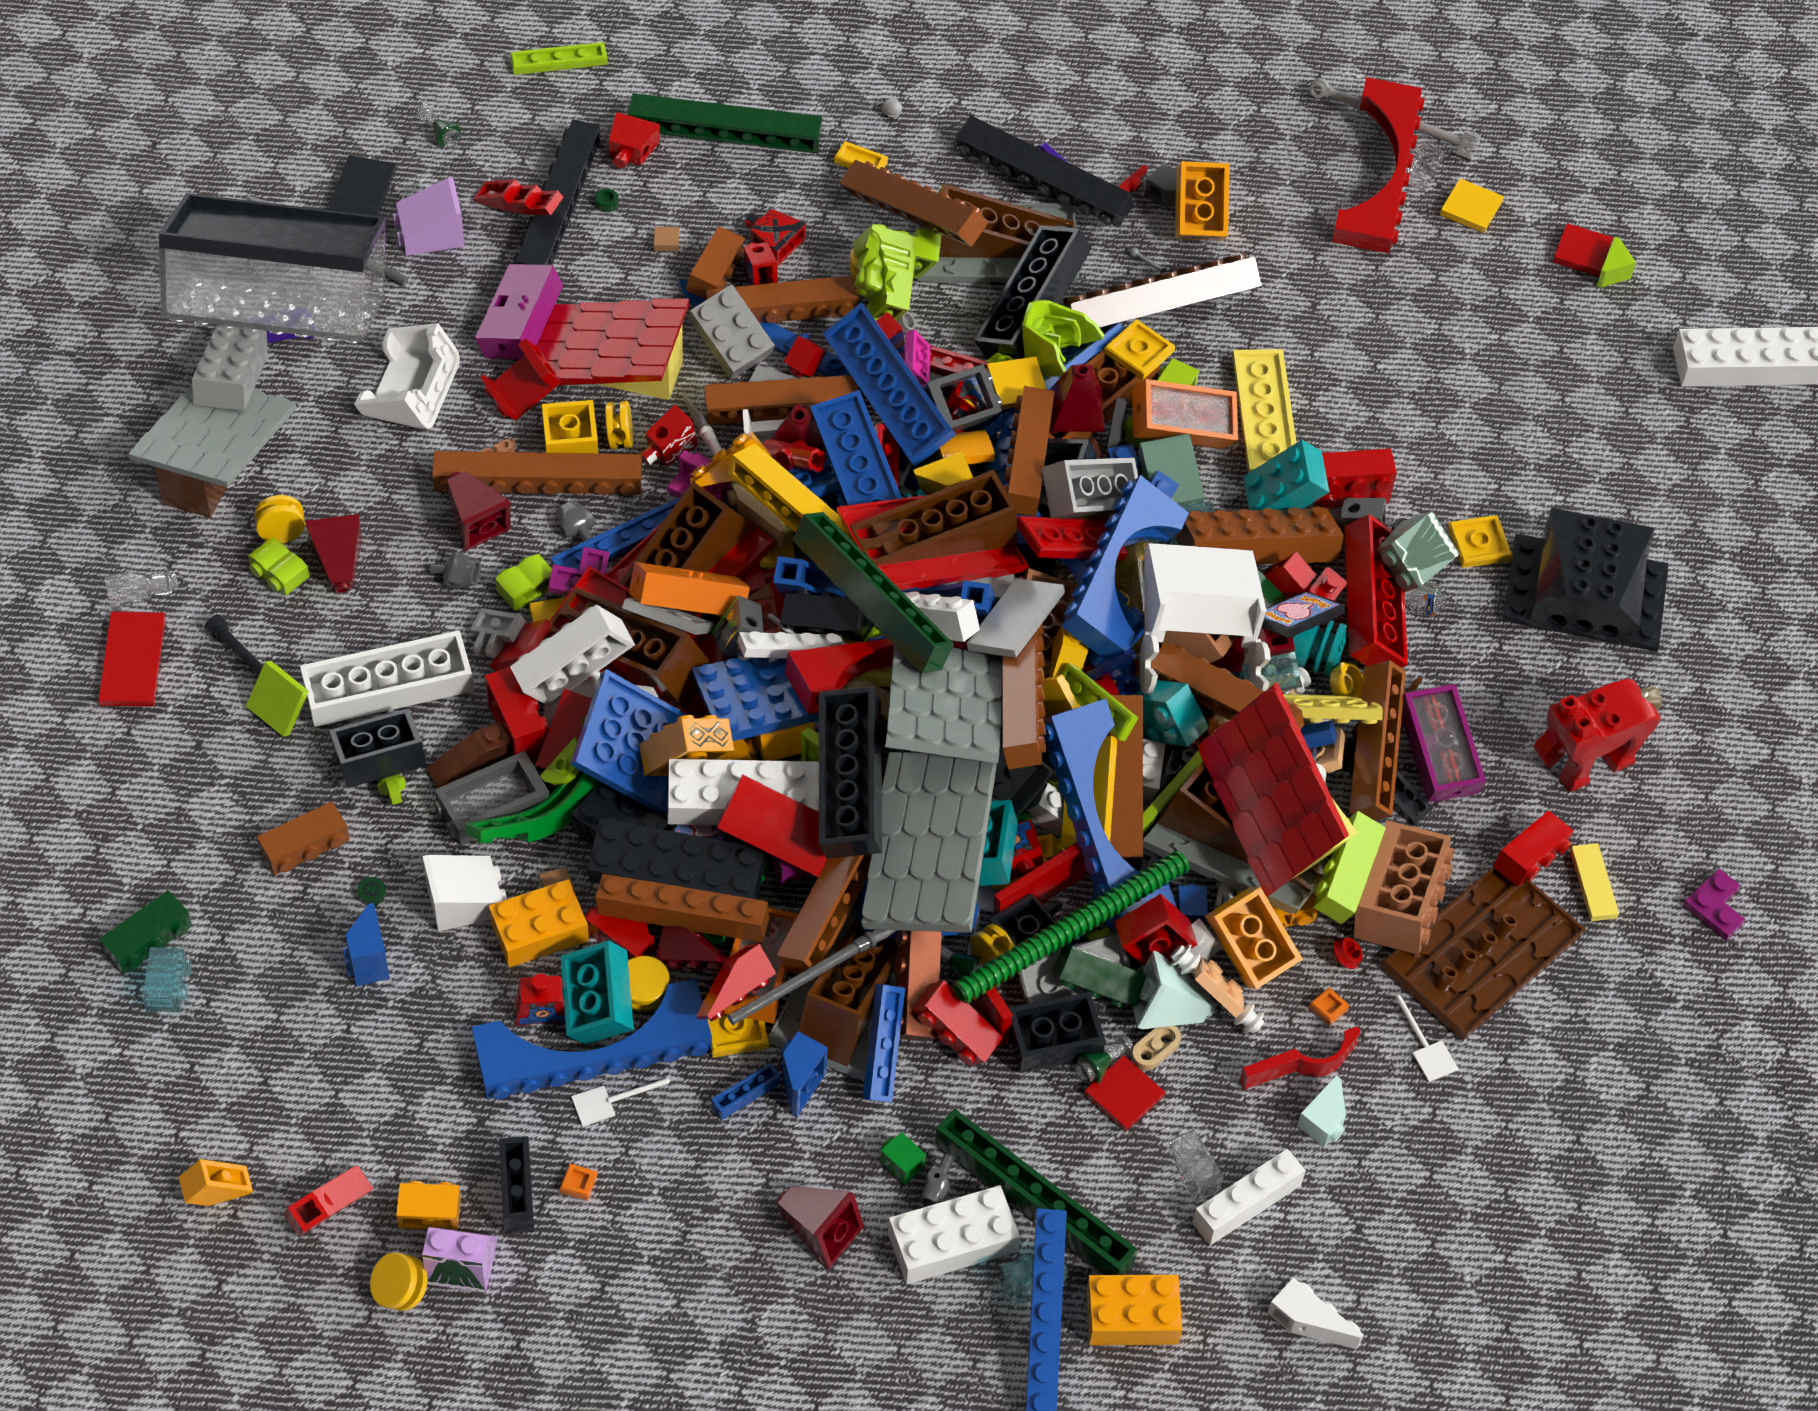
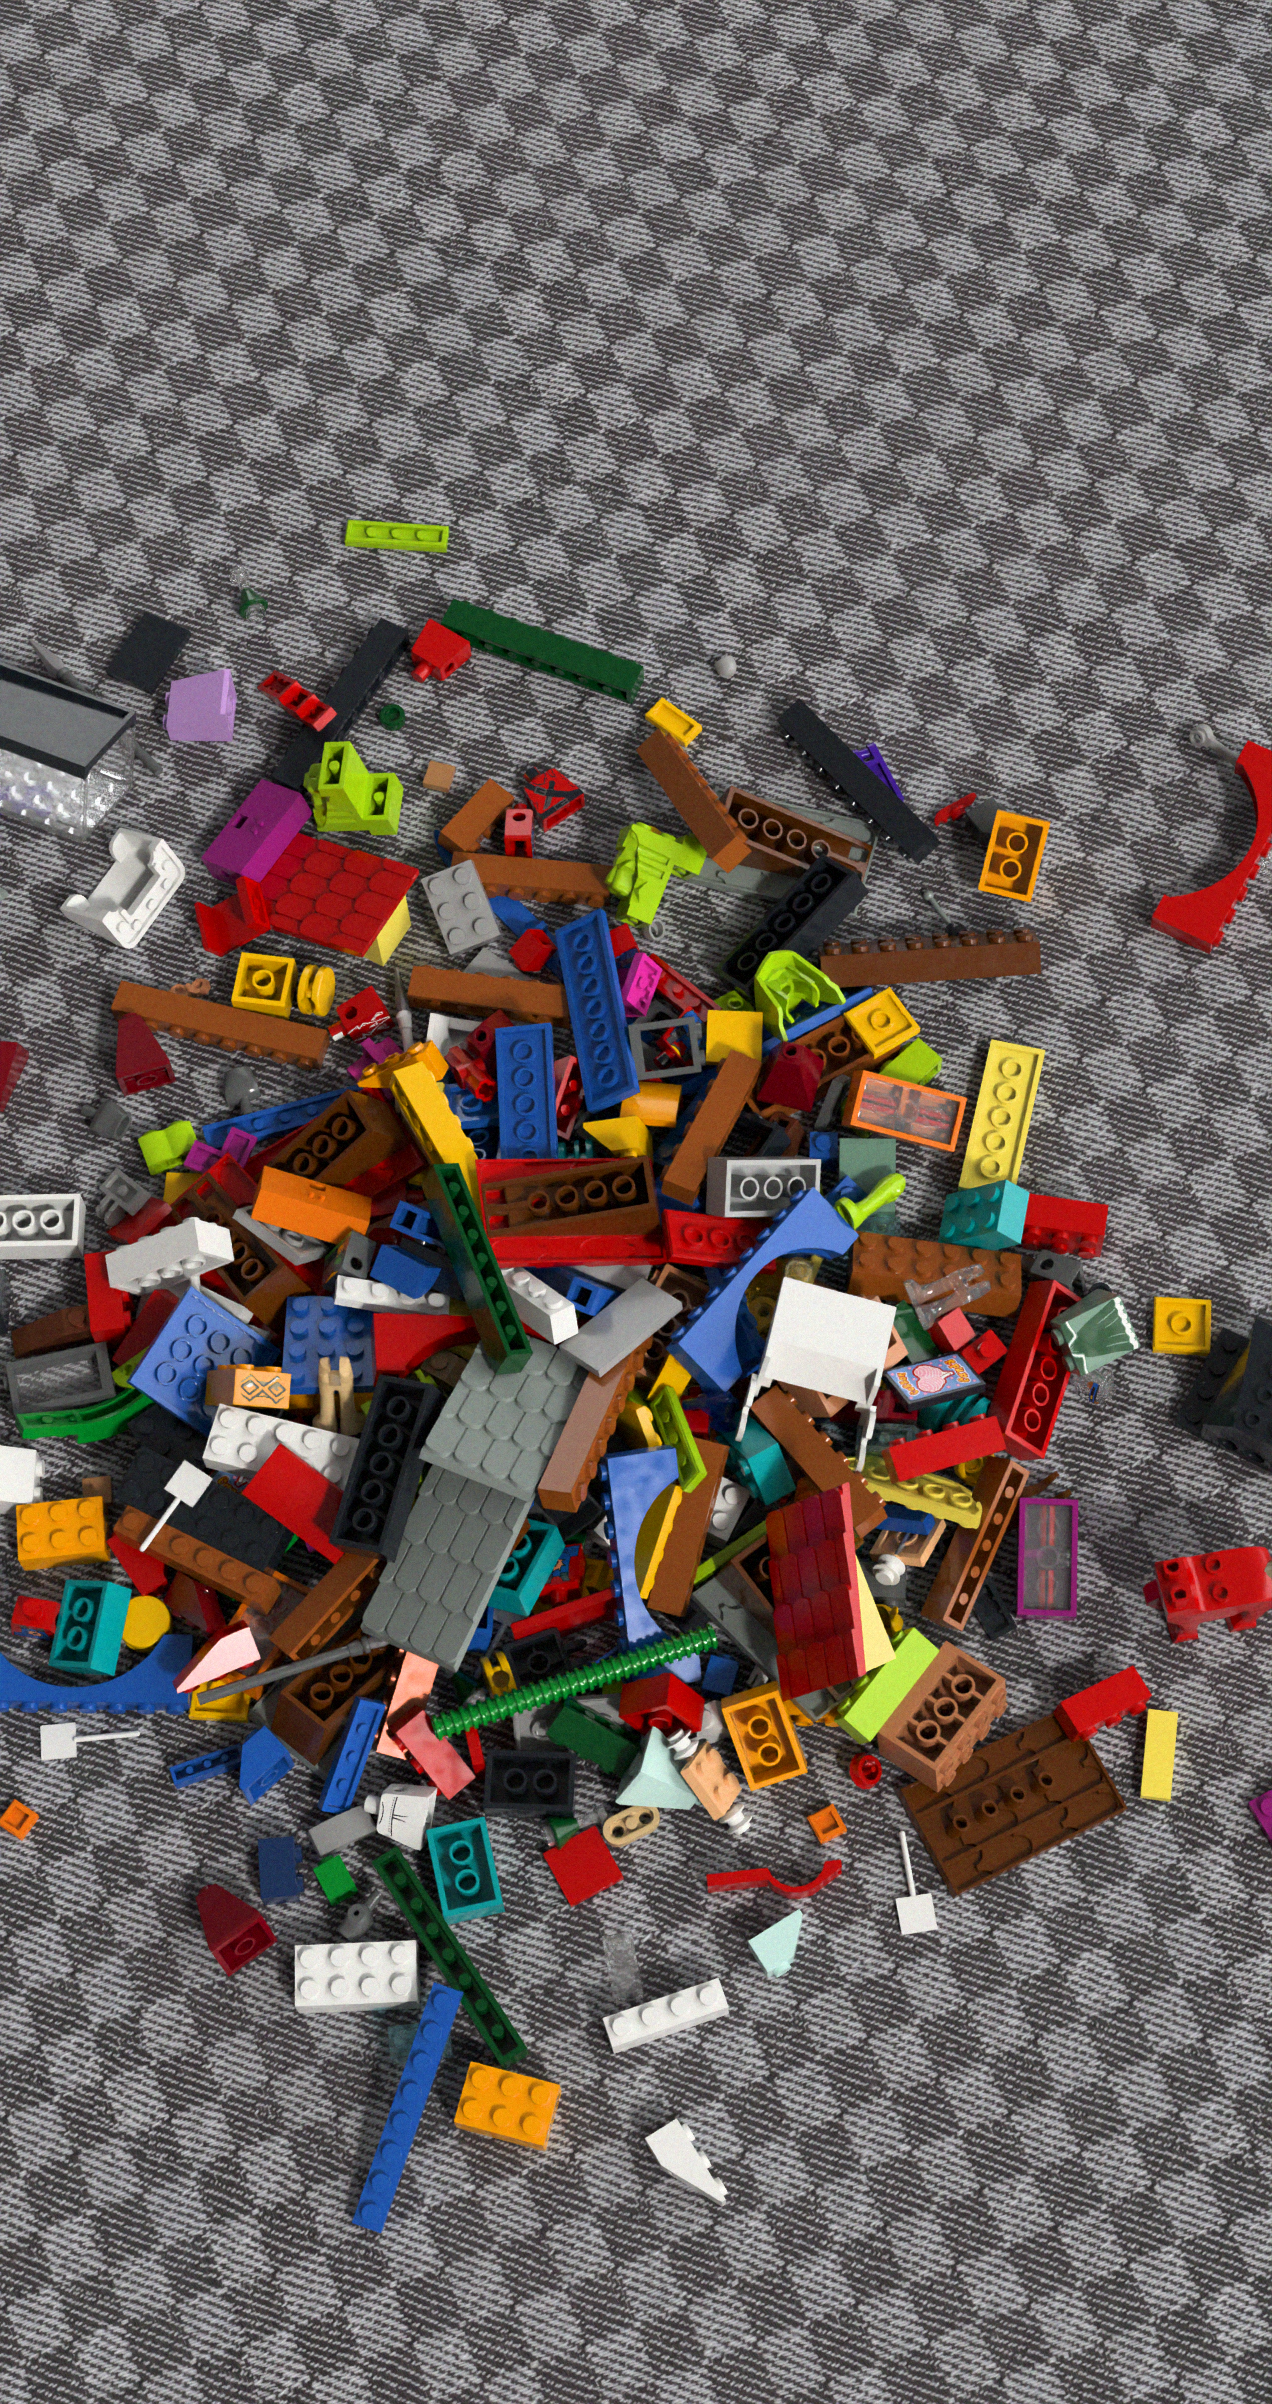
camera: 25 degrees right, 10 degrees up
(593, 263) = (350, 796): none -> lime brick
(657, 839) = (186, 1486): none -> white piece
(777, 716) = (341, 1381): none -> tan piece
(799, 616) = (404, 1271): none -> blue brick
(847, 1162) = (279, 1870): none -> dark blue brick
(892, 1115) = (341, 1830): none -> light grey slope
(947, 1082) = (404, 1813): none -> white torso
(1022, 1116) = (465, 1870): none -> teal brick
(1193, 479) = (884, 1192): none -> lime piece
(1298, 537) = (958, 1281): none -> clear piece
(1328, 664) = (944, 1449): none -> red brick

